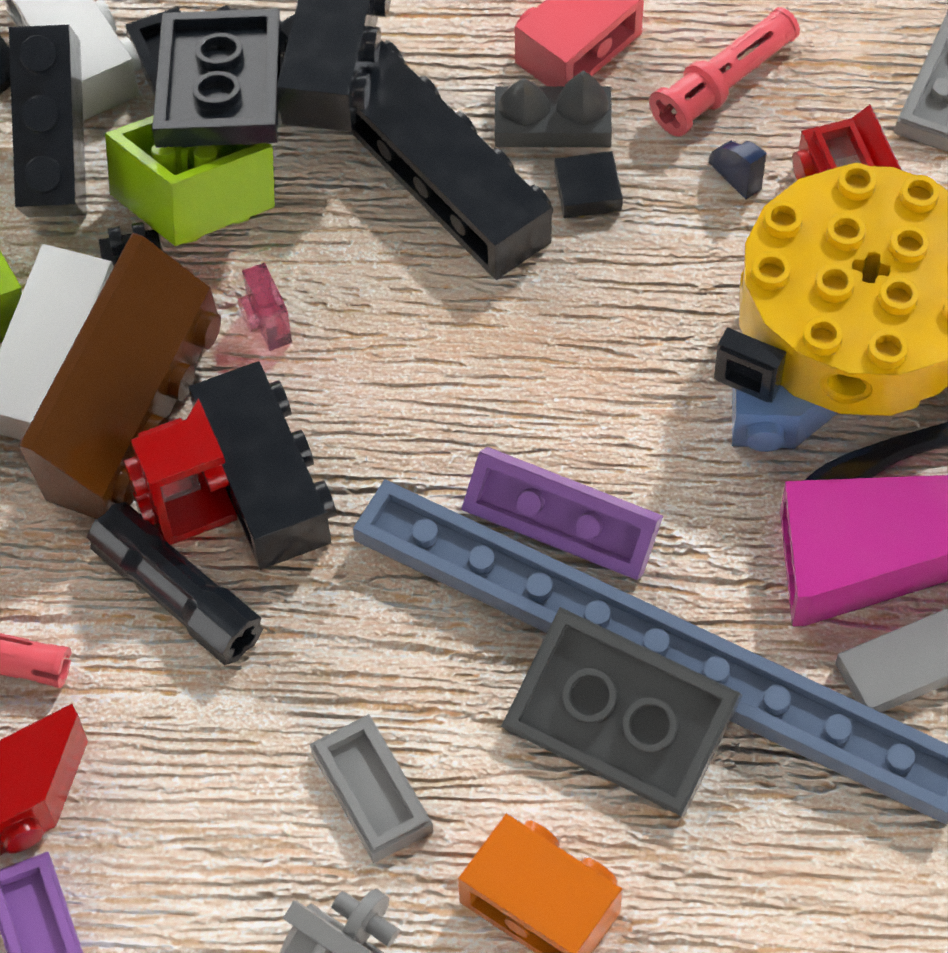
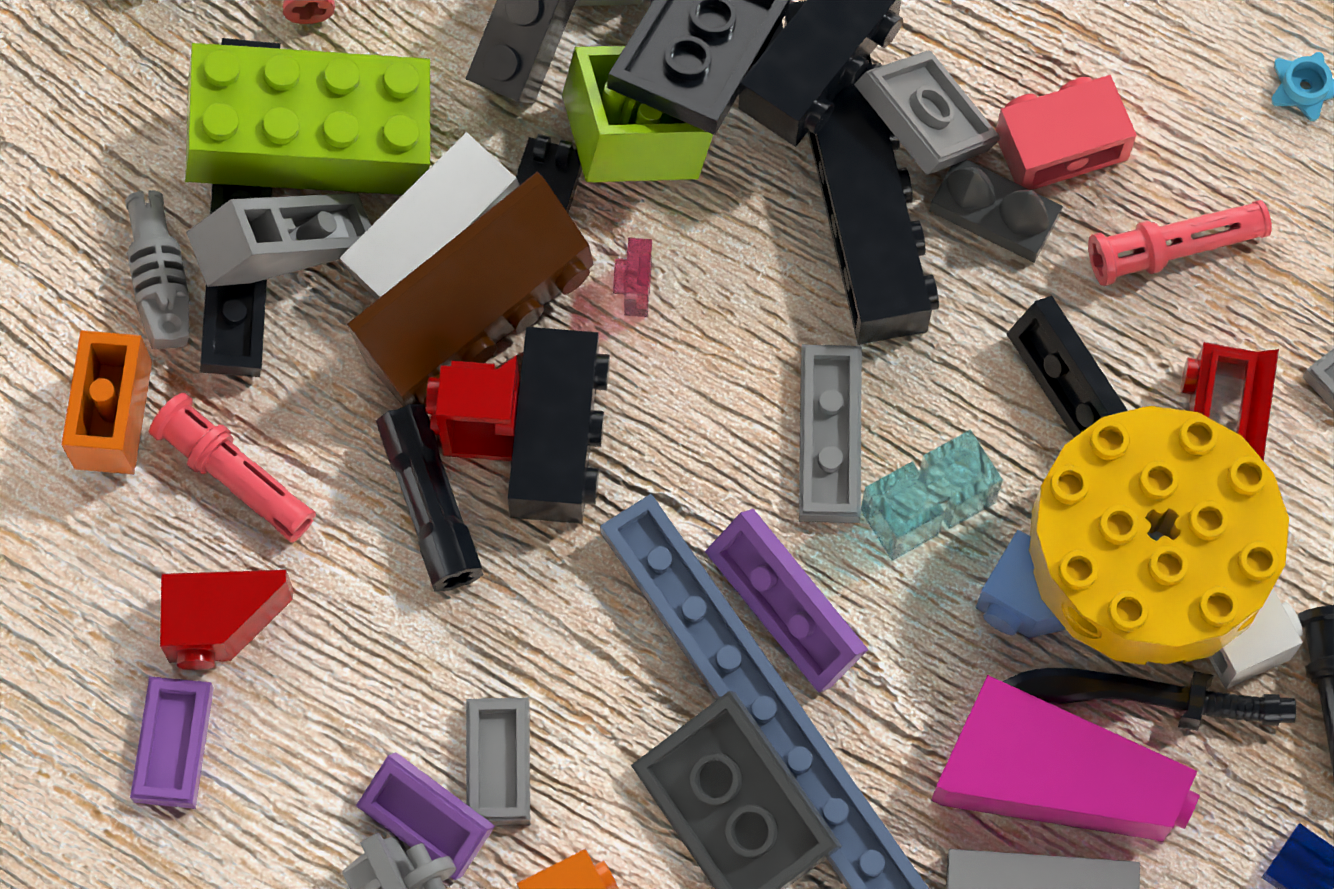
camera: 25 degrees right, 10 degrees up
(320, 865) = (425, 813): none -> medium lavender tile
(451, 57) = (927, 111): none -> light grey tile
(516, 361) = (830, 434): none -> light grey tile
(588, 184) = (988, 293): black tile -> none
(626, 376) = (906, 503): none -> clear light blue piece
(691, 209) = (1063, 366): none -> black hinge
(740, 166) = (1135, 344): dark blue tile -> none
(749, 365) = (1011, 556): black tile -> none

